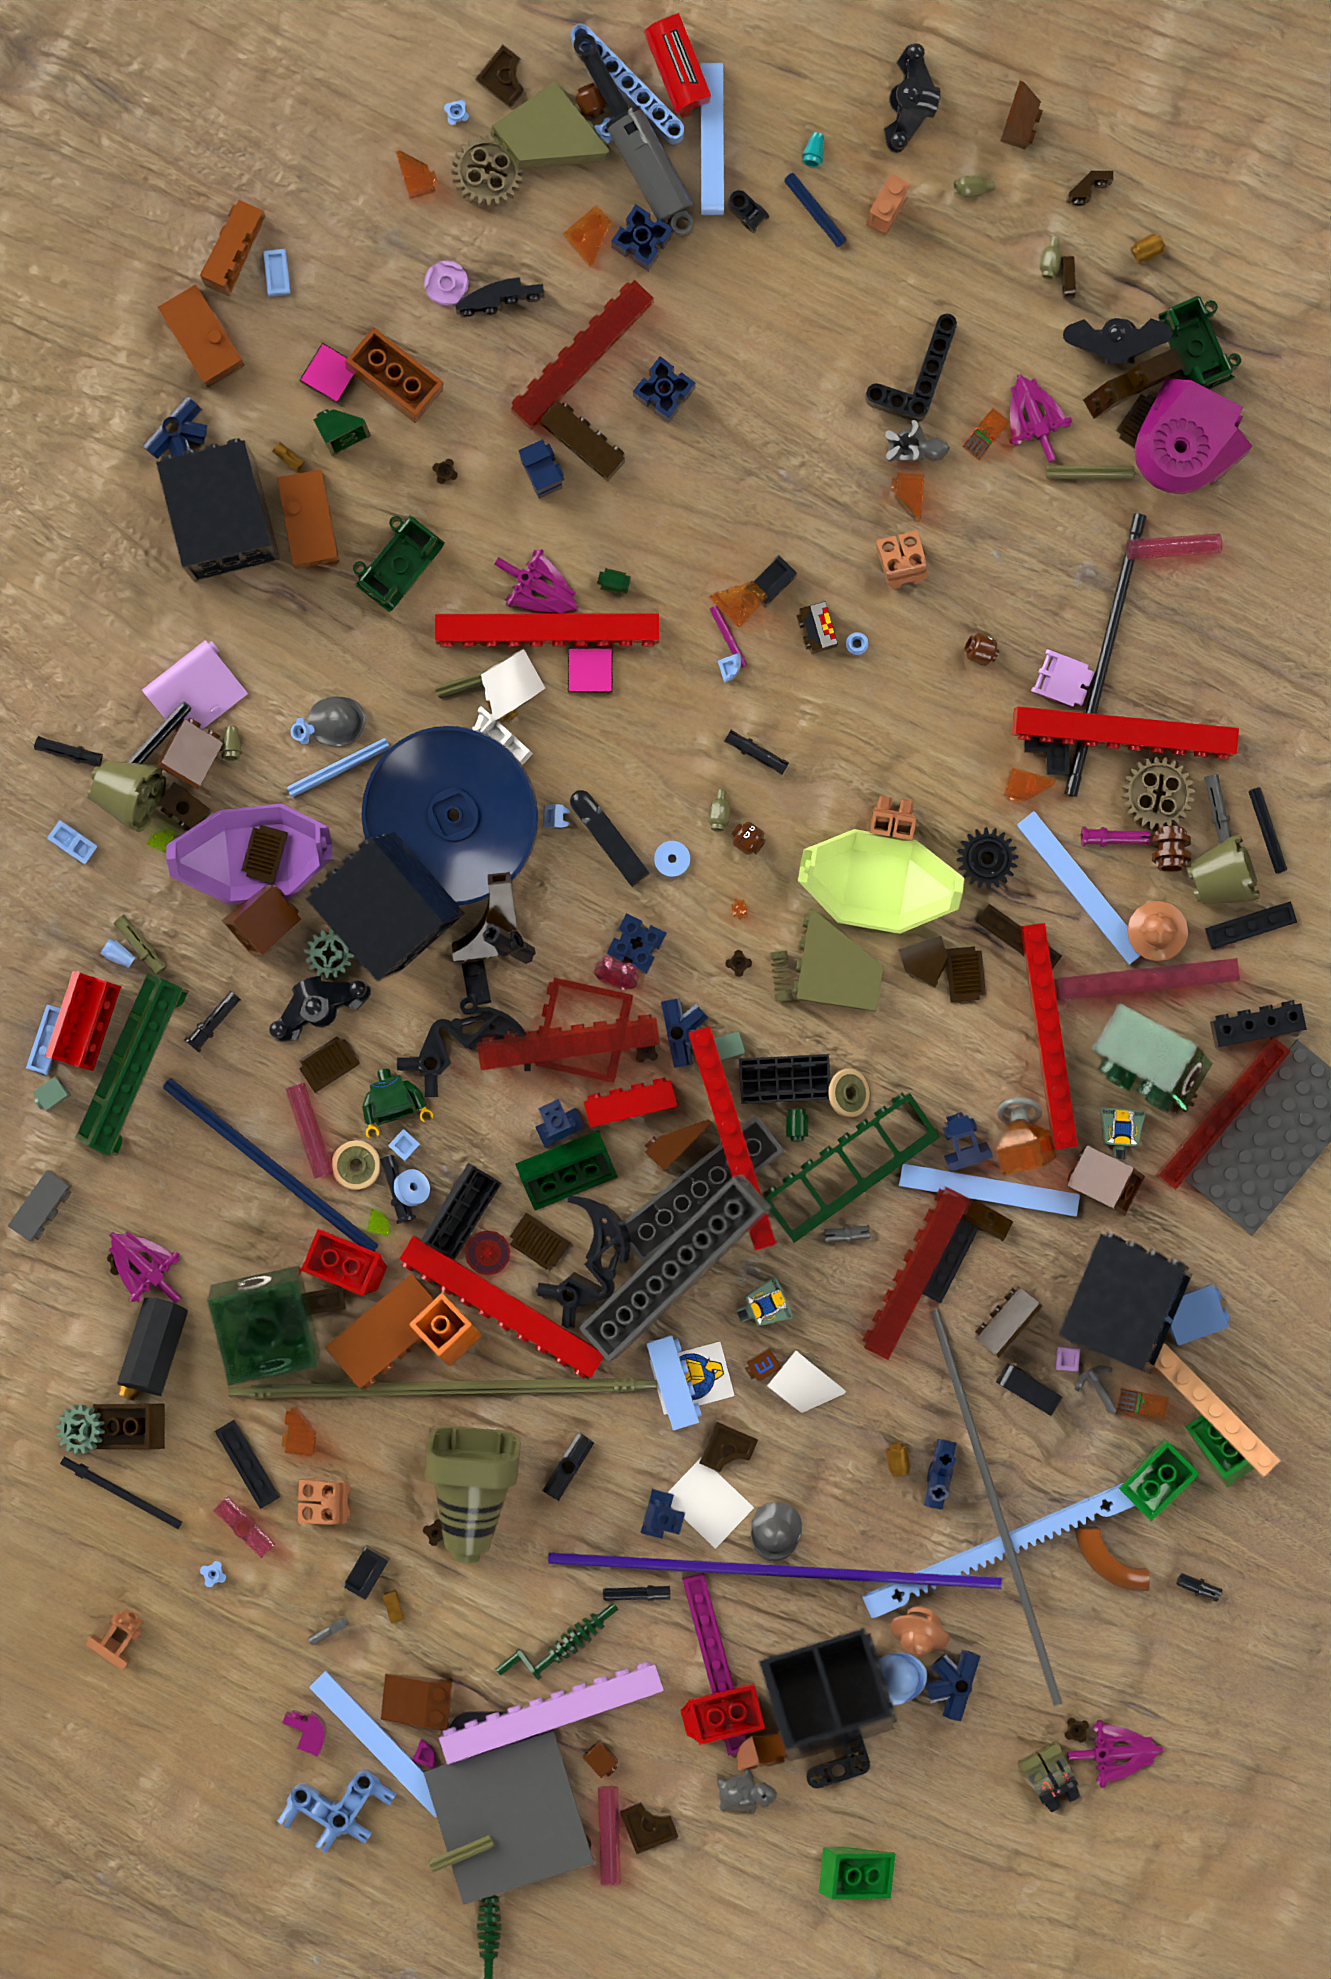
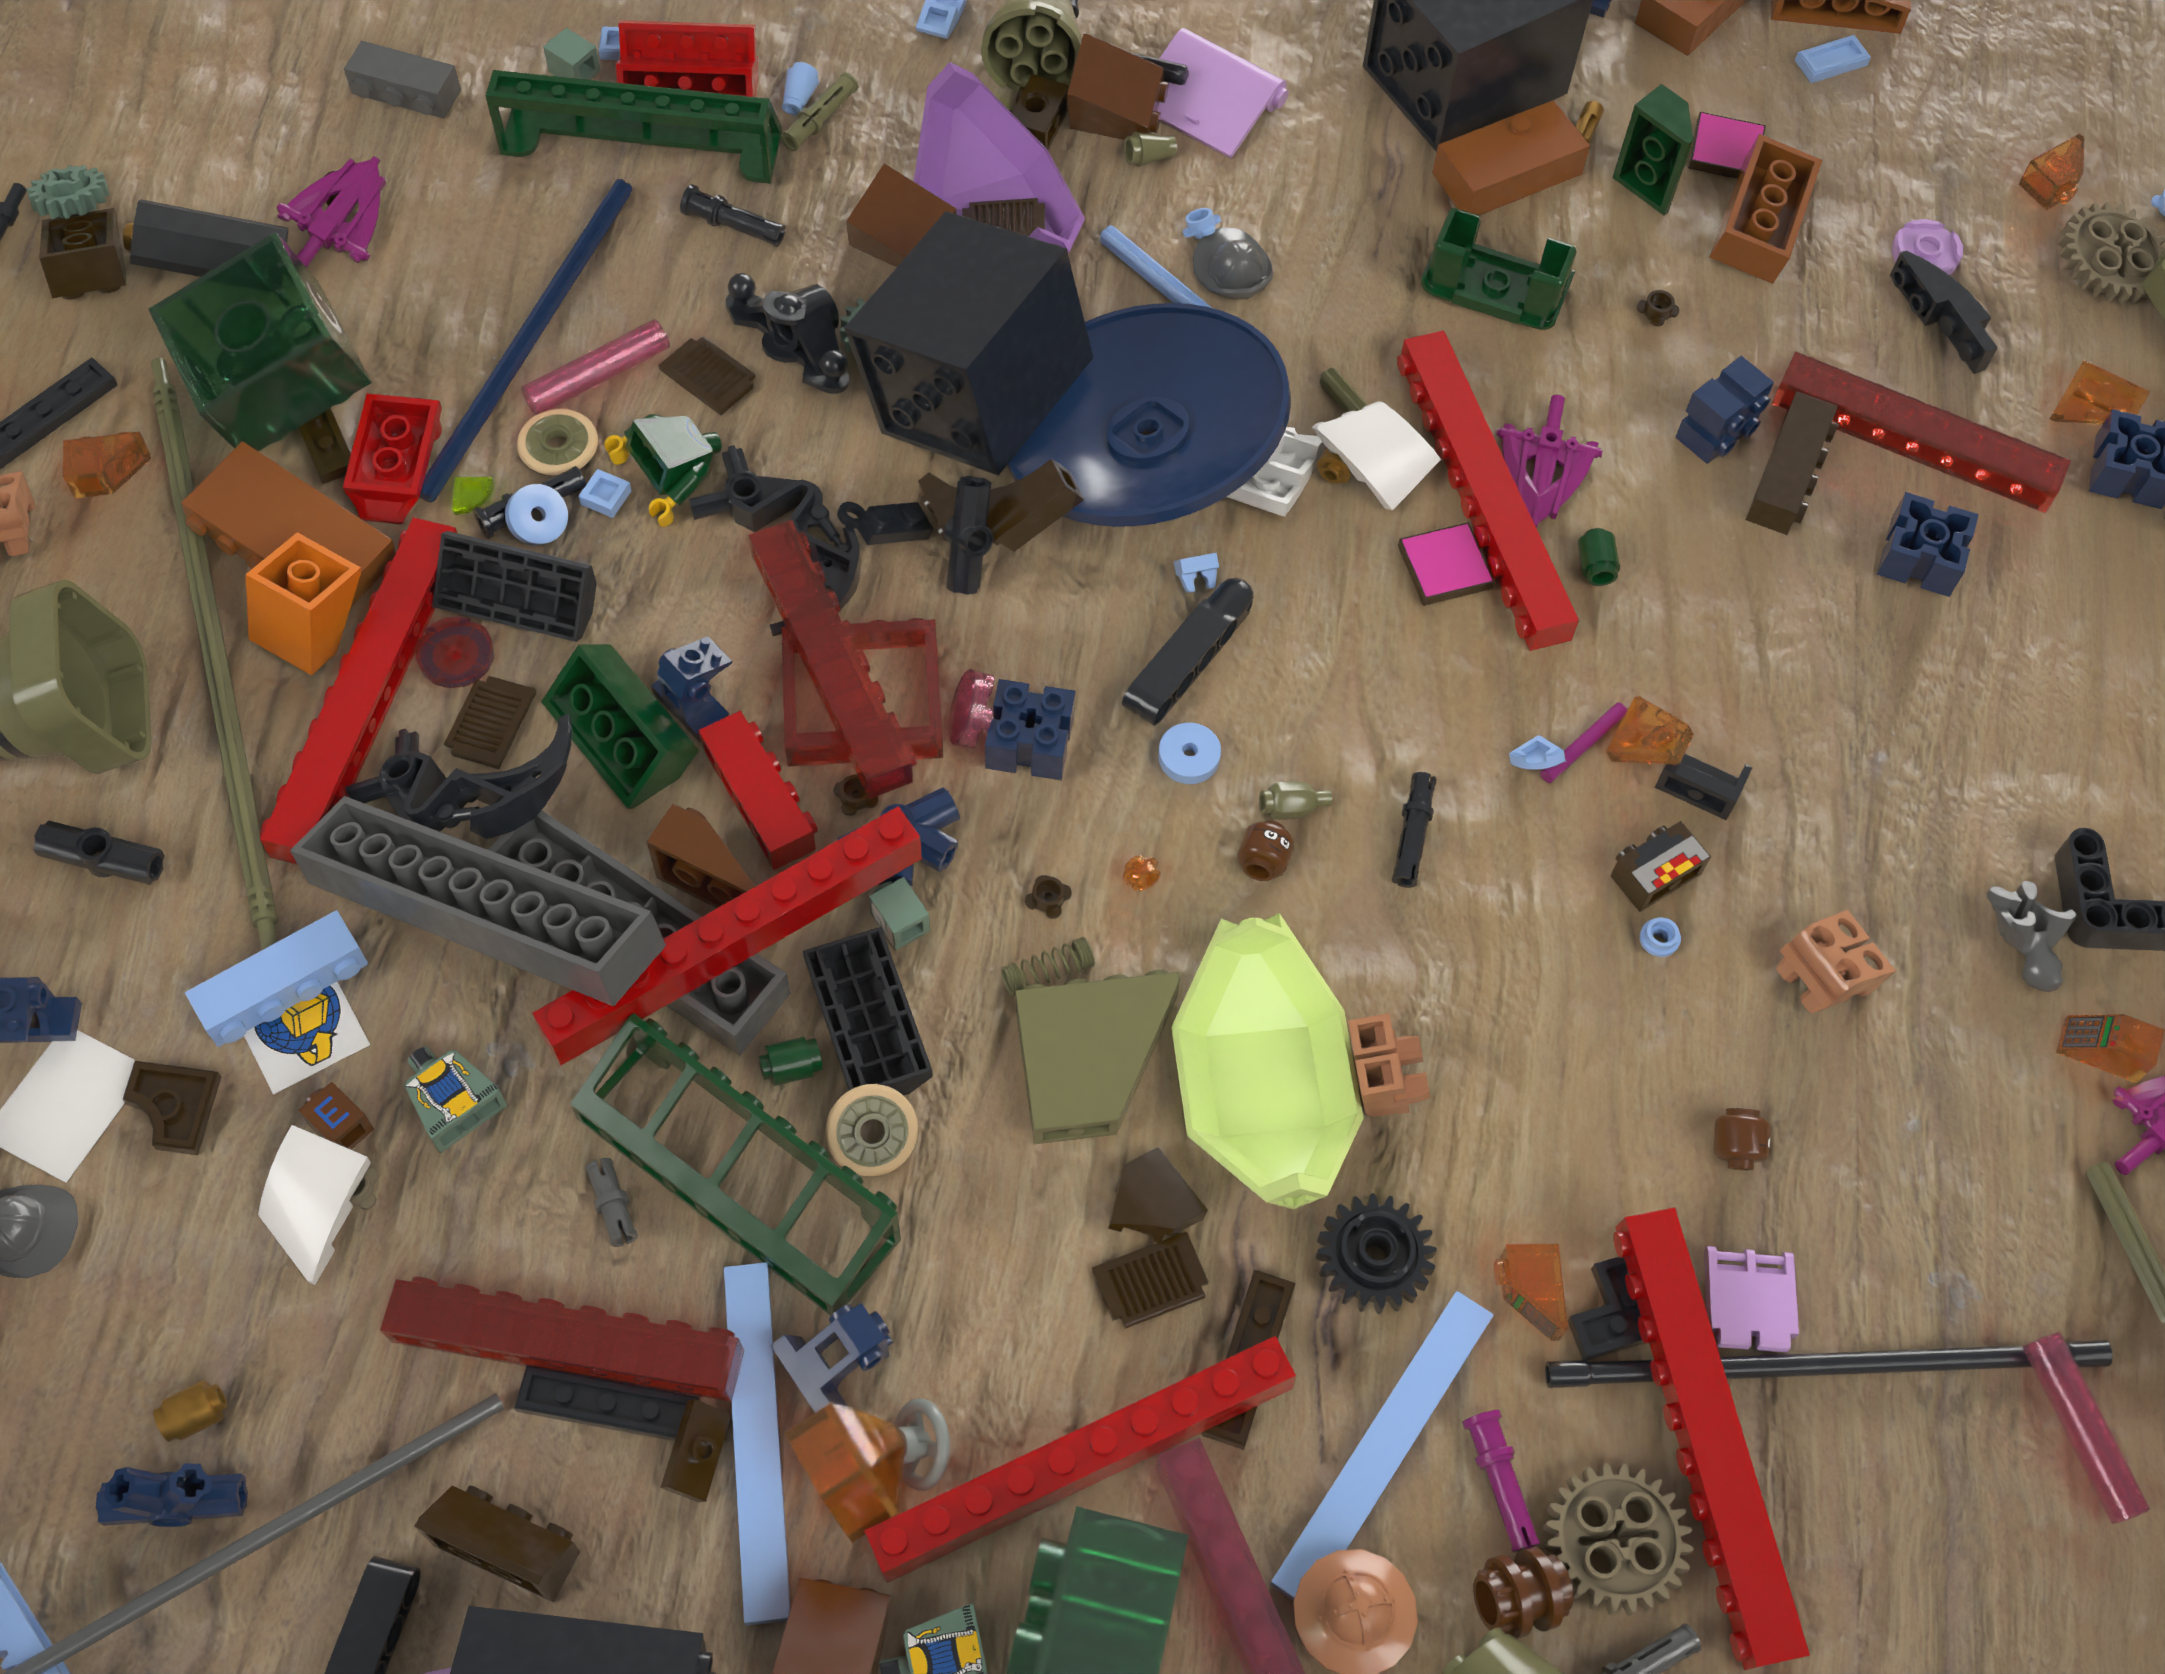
camera: 70 degrees right, 25 degrees down
(909, 492) = (1951, 948): clear orange slope -> none

